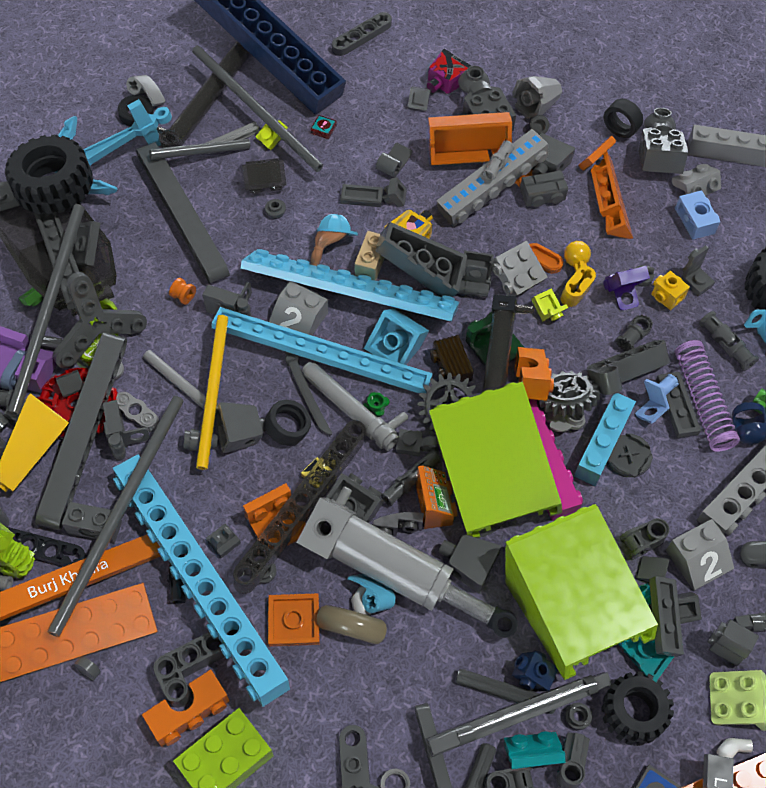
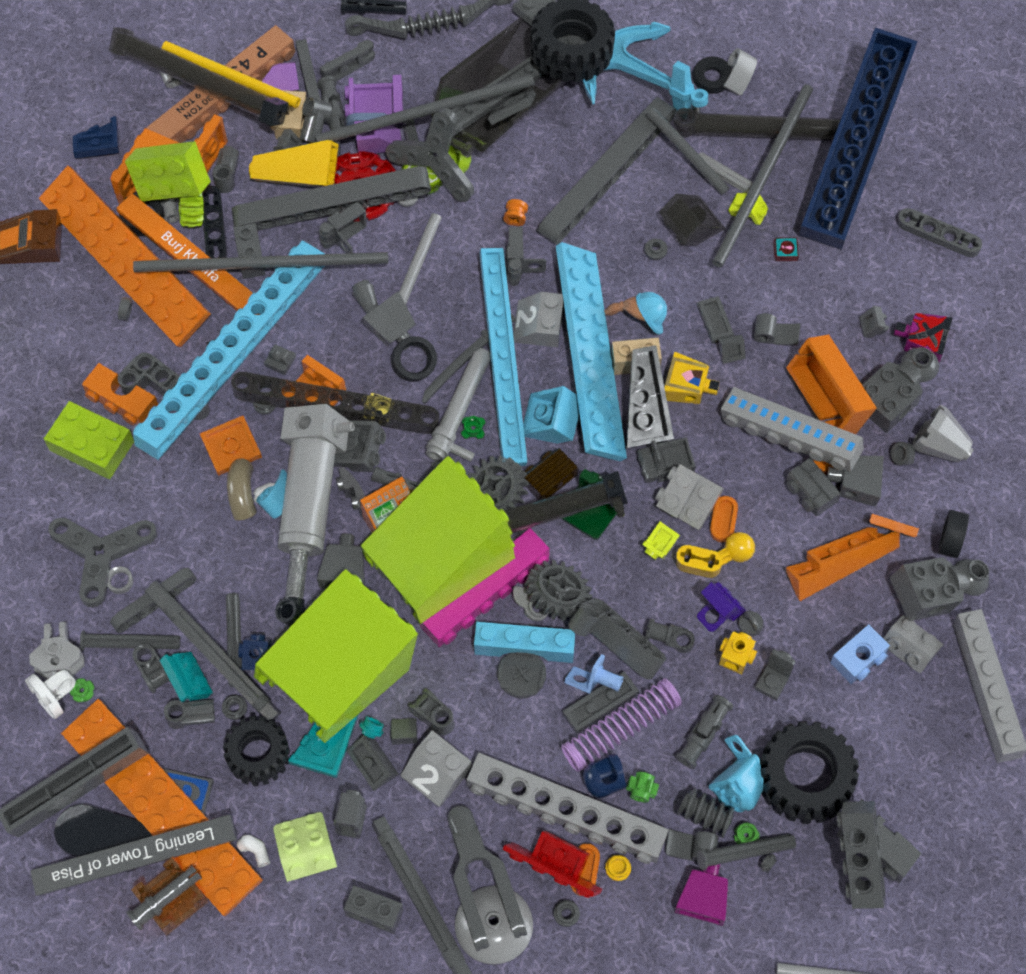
camera: 70 degrees right, 5 degrees up
(70, 383) = (370, 167): dark grey slope -> none
(145, 418) = (379, 222): light grey piece -> none
(212, 393) = (411, 281): yellow piece -> none
(498, 160) = (801, 420): light grey pin -> none
(534, 371) = (544, 549): orange arch -> none
(667, 615) = (351, 747): dark grey plate -> none

